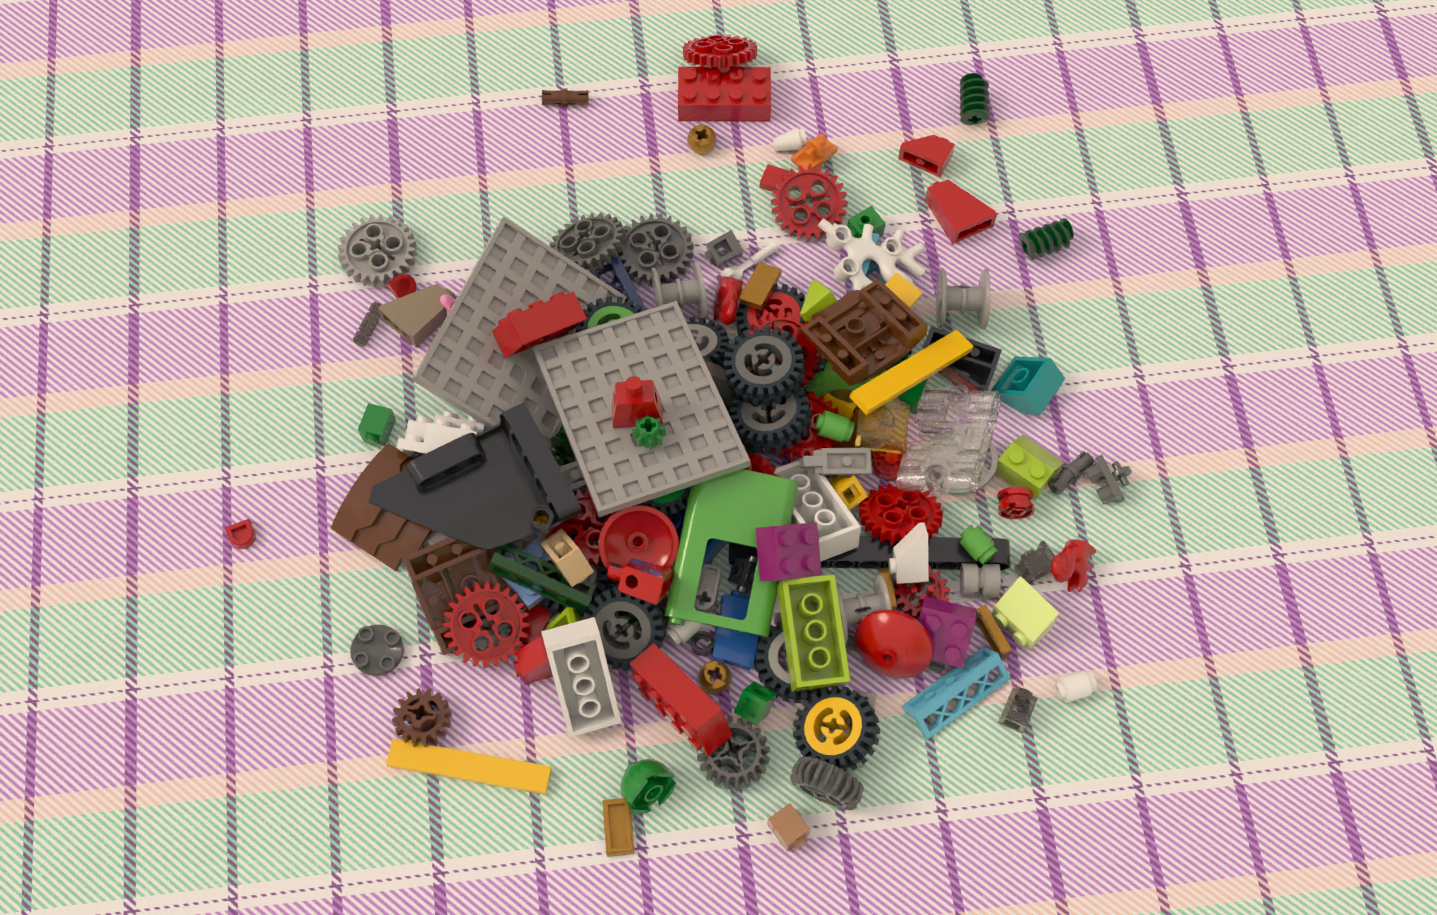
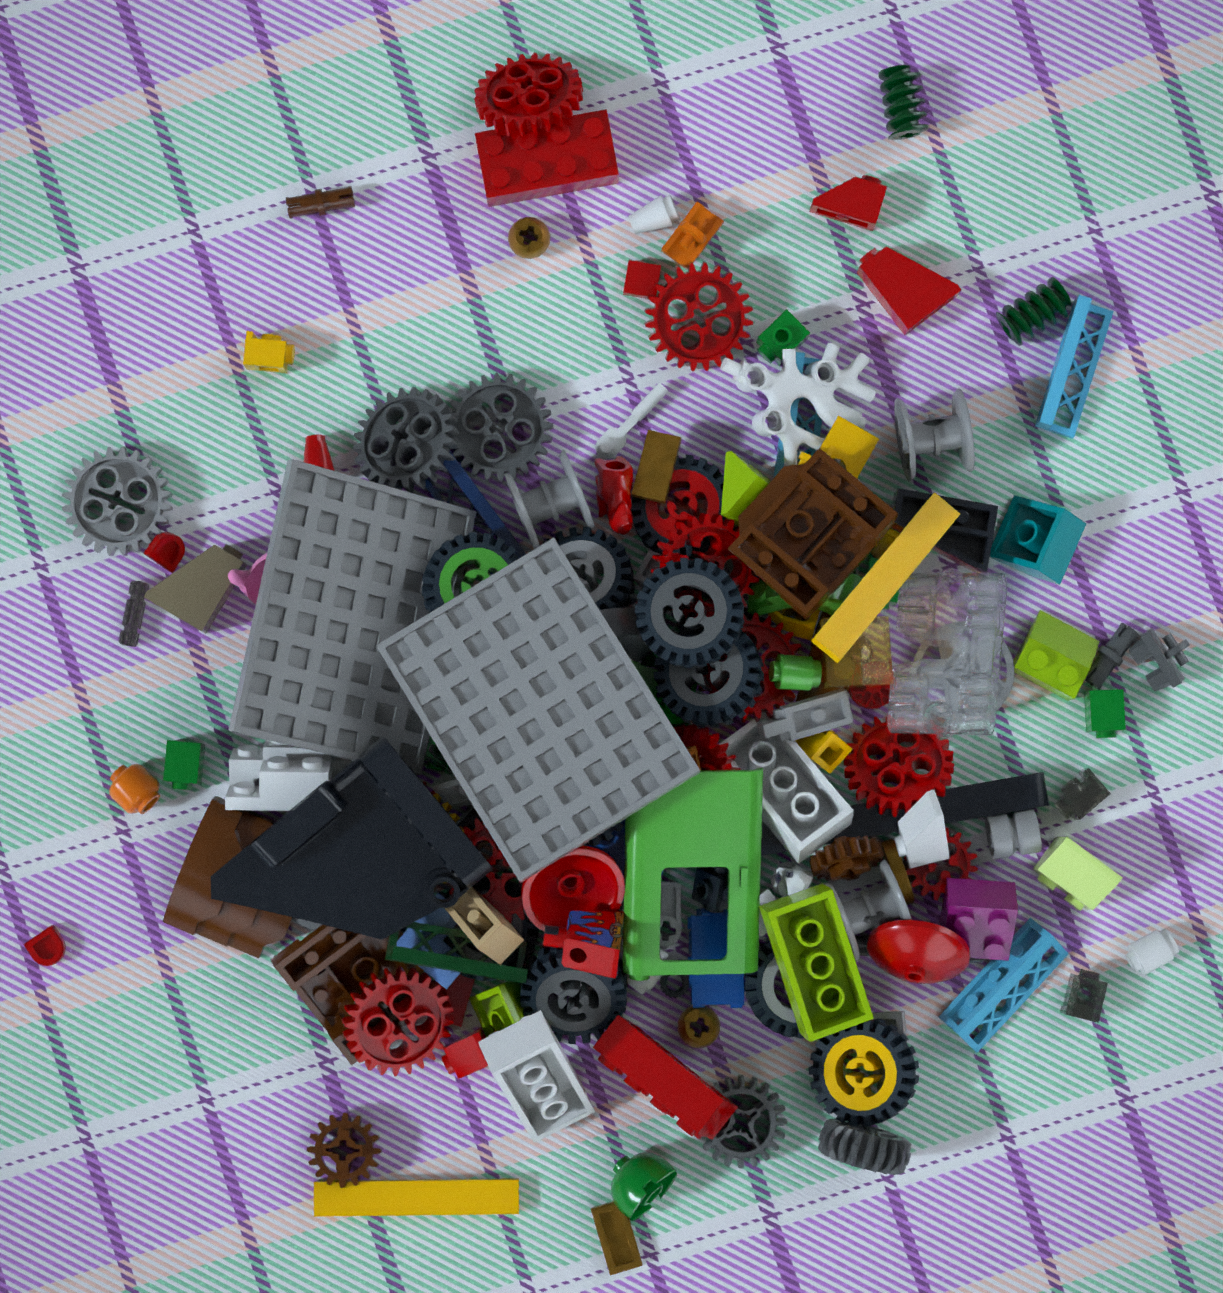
camera: 15 degrees left, 20 degrees up
(336, 434) = (134, 789): none -> orange head
(376, 650) = (264, 1070): dark grey dish -> none
(505, 178) = (267, 353): none -> yellow brick
(538, 323) = (376, 610): red brick -> none
(634, 401) = (537, 723): red torso -> none
(649, 432) = (571, 762): green gear -> none
(725, 241) = (607, 411): dark grey brick -> none
(755, 703) = (757, 1054): green brick -> none
(788, 551) = (768, 869): magenta piece -> none
(789, 828) = (826, 1202): medium nougat brick -> none
(851, 569) = (846, 858): none -> reddish brown gear
(978, 544) = (1005, 794): bright green brick -> none
(992, 632) = (1038, 901): pearl gold tile -> none
(1015, 503) = (1044, 717): red wheel -> none
(1061, 508) = (1104, 712): none -> green brick
(1064, 274) = (1063, 362): none -> medium azure fence
(1072, 564) = (1129, 793): red animal -> none

